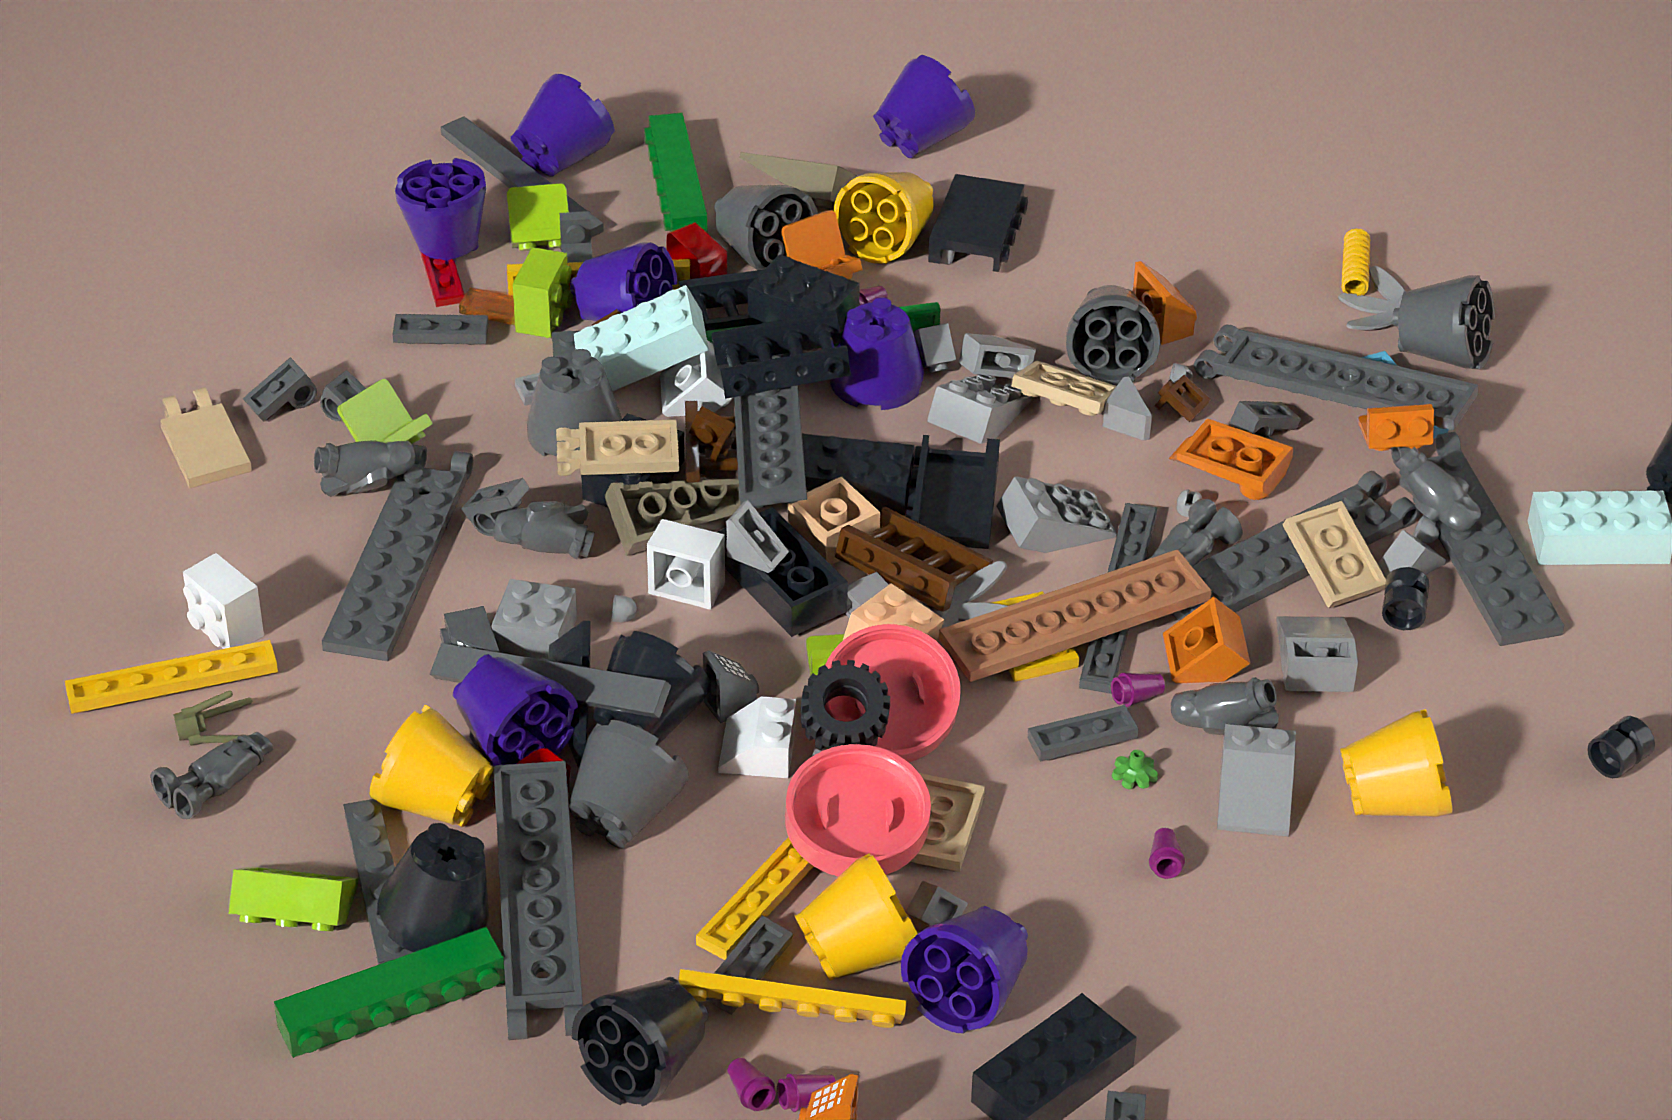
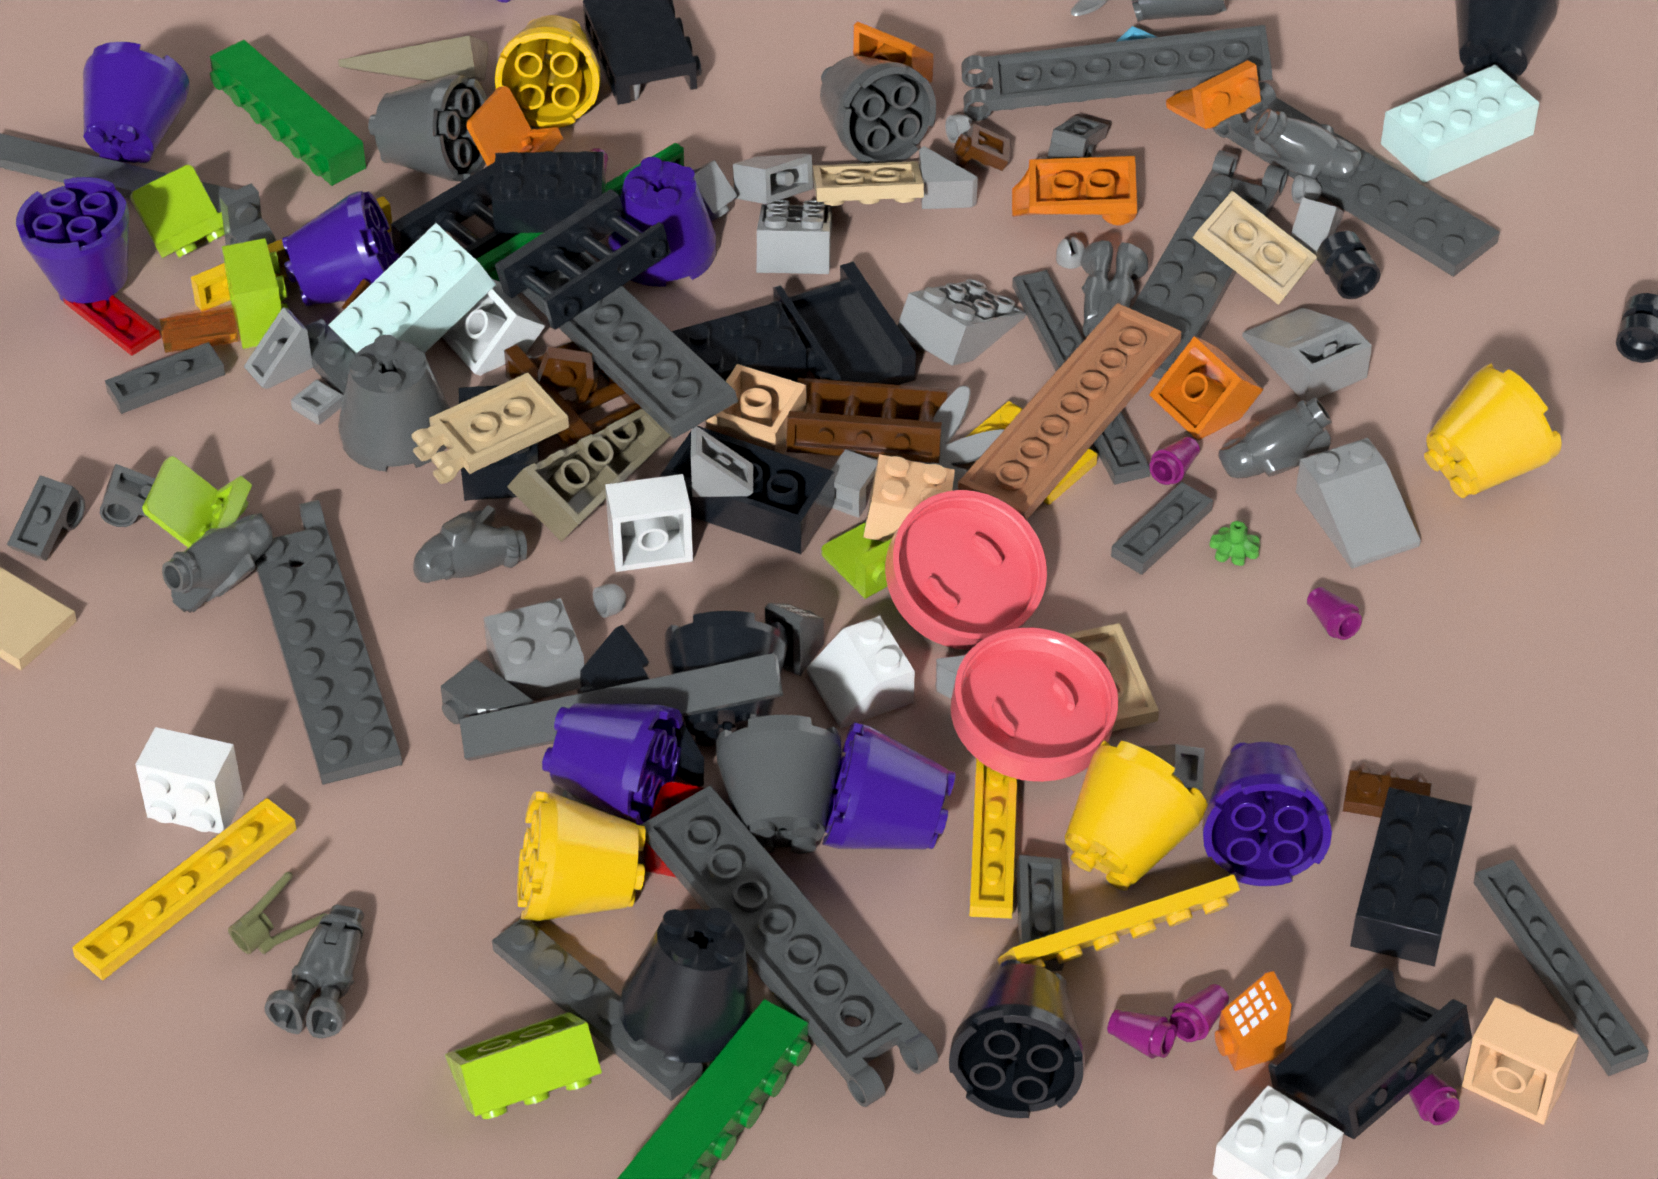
camera: 30 degrees left, 5 degrees up
(493, 500) = (387, 547): dark grey plate -> none
(531, 343) = (281, 352): none -> light grey slope
(688, 824) = (886, 795): none -> dark purple cone
(705, 254) = (400, 182): red piece -> none
(844, 681) = (966, 579): black tyre -> none
(1105, 998) = (1368, 791): none -> reddish brown plate

